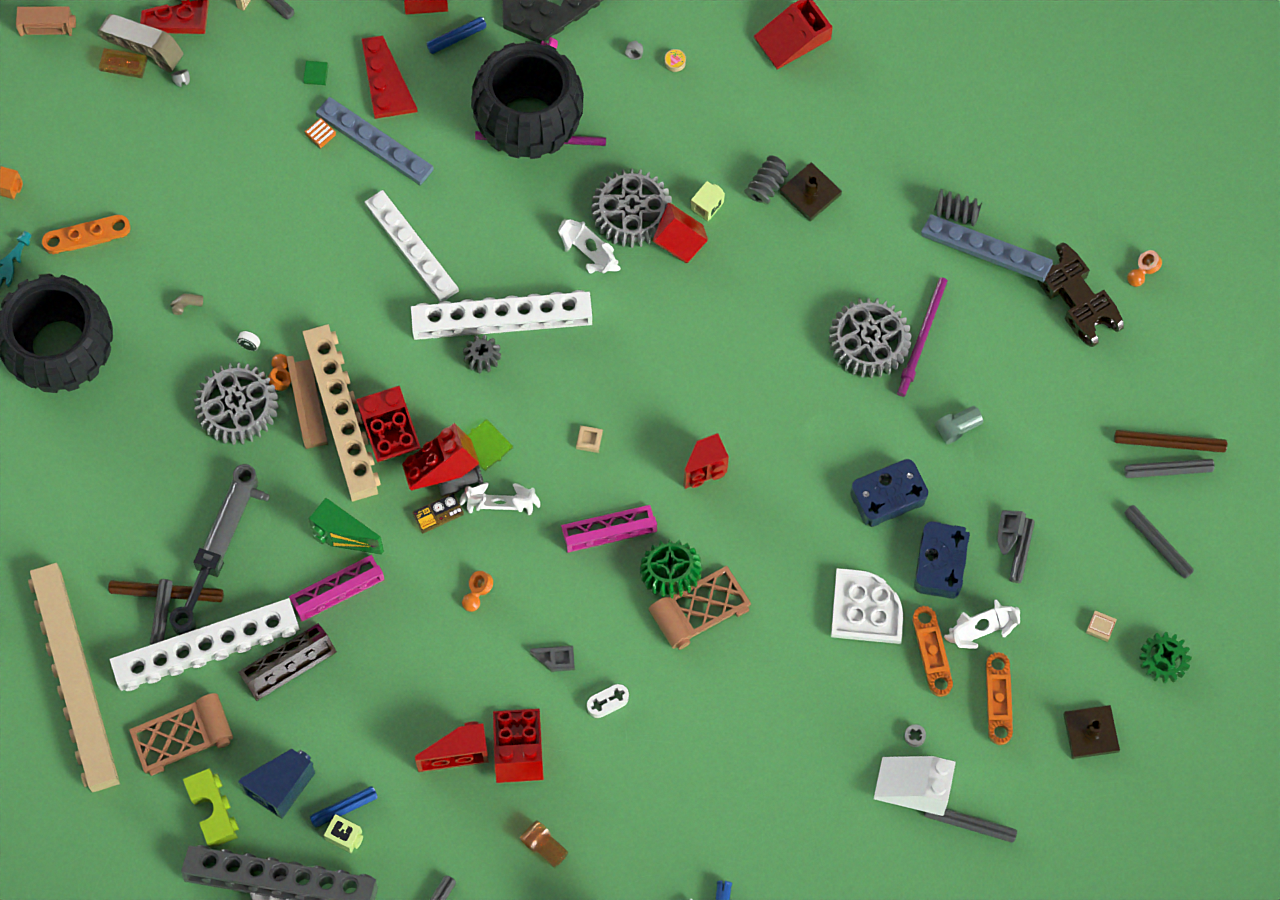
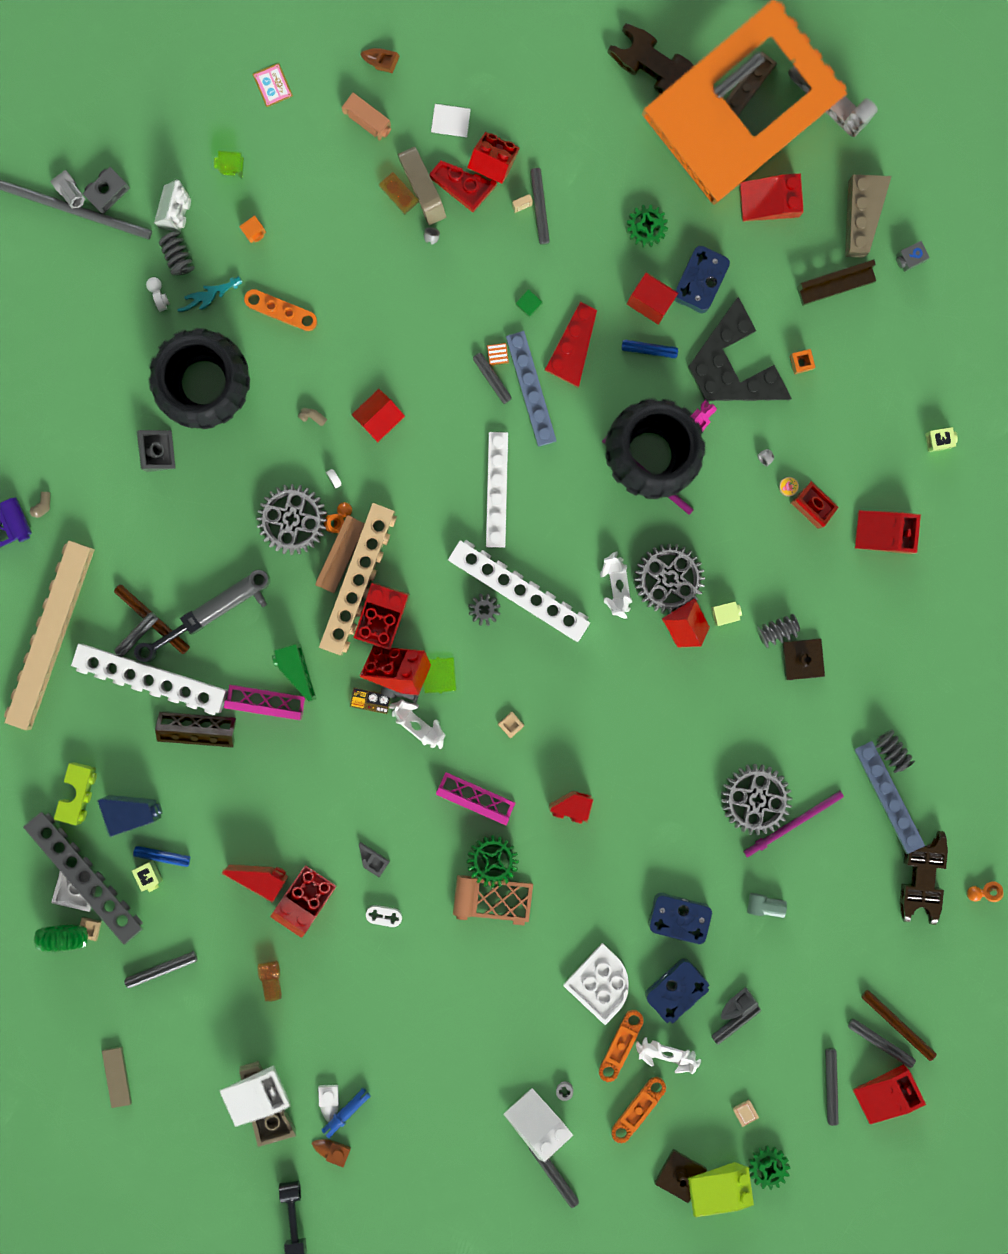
camera: 35 degrees right, 20 degrees up
(56, 434) = (156, 450): none -> dark grey slope
(212, 726) = (116, 734): nougat piece -> none
(249, 259) = (378, 415): none -> red slope
(331, 156) = (492, 378): none -> dark grey axle
(471, 601) = (347, 779): orange plate -> none
(711, 60) = (815, 505): none -> red slope
(1137, 706) = (721, 1190): none -> lime slope
(1216, 506) = (889, 1095): none -> red slope

